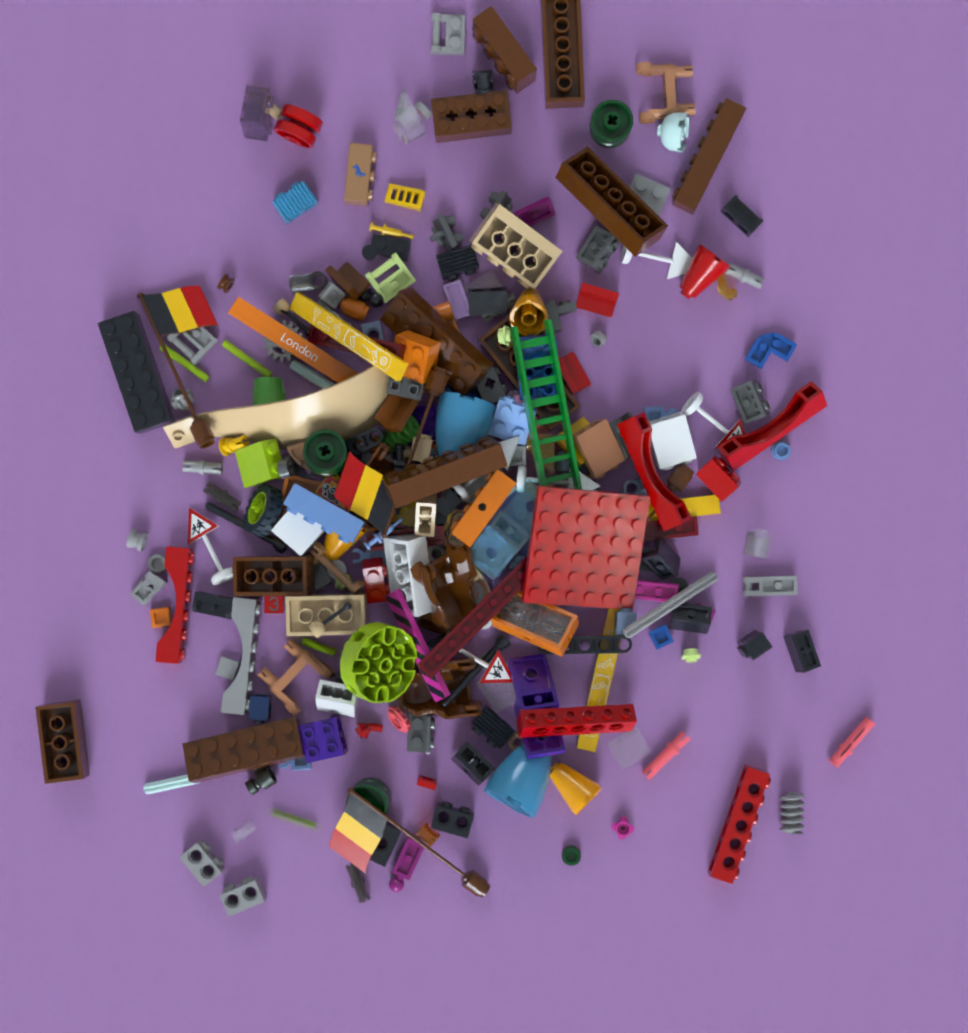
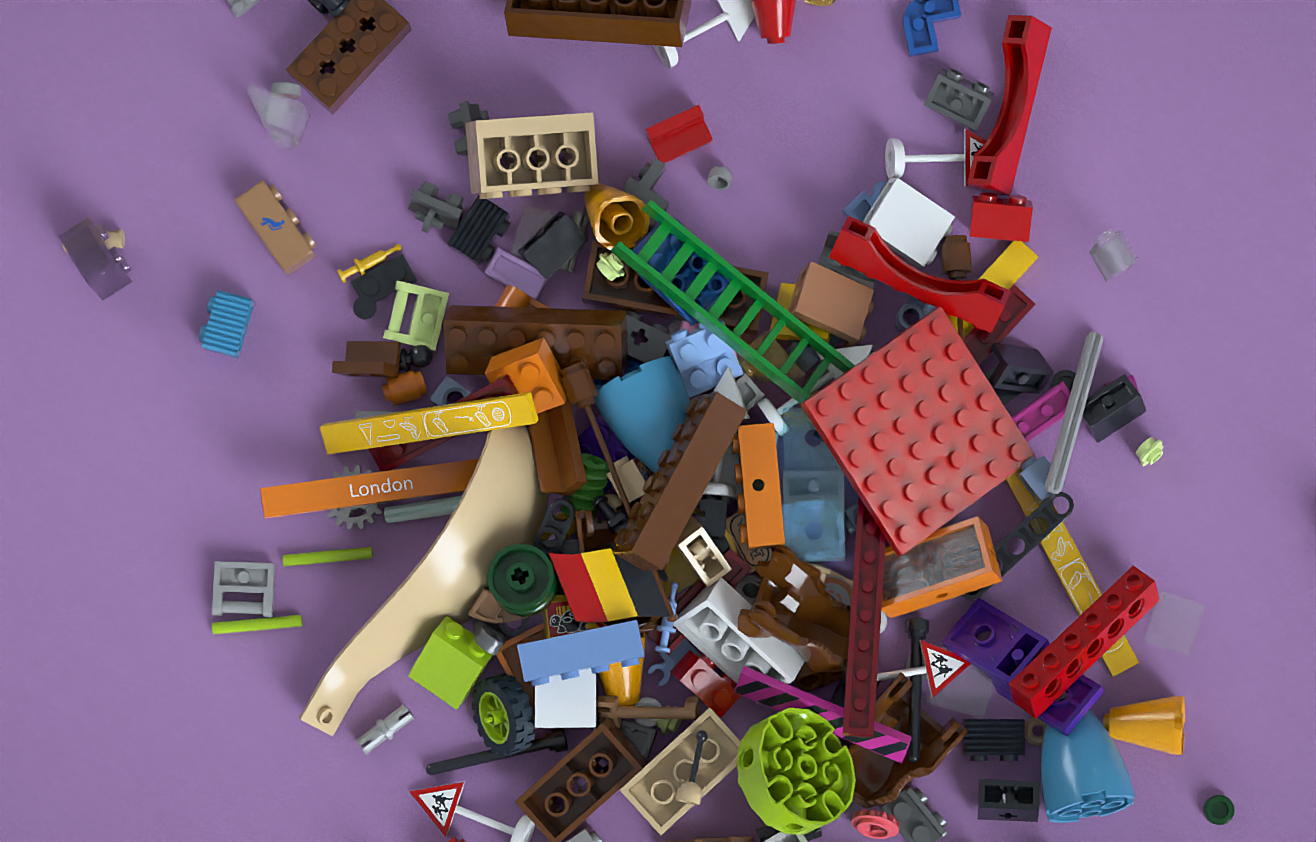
camera: 40 degrees left, 5 degrees down
(136, 372) = (211, 684): black brick -> none
(175, 314) = (199, 574): flag -> none
(178, 400) = (293, 668): light grey gear -> none
(222, 496) = (438, 743): clear smoke pin -> none
(226, 283) = (227, 488): reddish brown bush -> none
(230, 445) = (397, 672): yellow pin -> none
(268, 390) = (387, 570): bright green piece -> none
(273, 604) = (609, 817): red tile -> none
(282, 308) = (319, 460): hinge -> none
(298, 126) = (157, 232): red wheel -> none
(306, 282) = (321, 406): clear smoke piece -> none
(318, 646) = (706, 822): lime piece -> none
(332, 295) = (365, 394): light grey tile -> none
(405, 388) = (550, 425): dark grey hips -> none
(420, 193) = (355, 217): yellow slope -> none
(536, 211) = (520, 93): magenta plate -> none
(573, 373) = (727, 242): red panel -> none
(598, 249) = (629, 75): dark grey bracket -> none
(626, 831) = (1257, 720): dark pink plate -> none
(660, 636) = (1096, 460): blue plate -> none
(671, 749) = (1224, 593): coral pin -> none
(753, 645) = (1211, 375): black brick -> none
(771, 585) = (1171, 290): light grey plate -> none
(781, 450) = (1044, 124): medium blue plate -> none
(802, 651) = (1274, 334): black hinge -> none

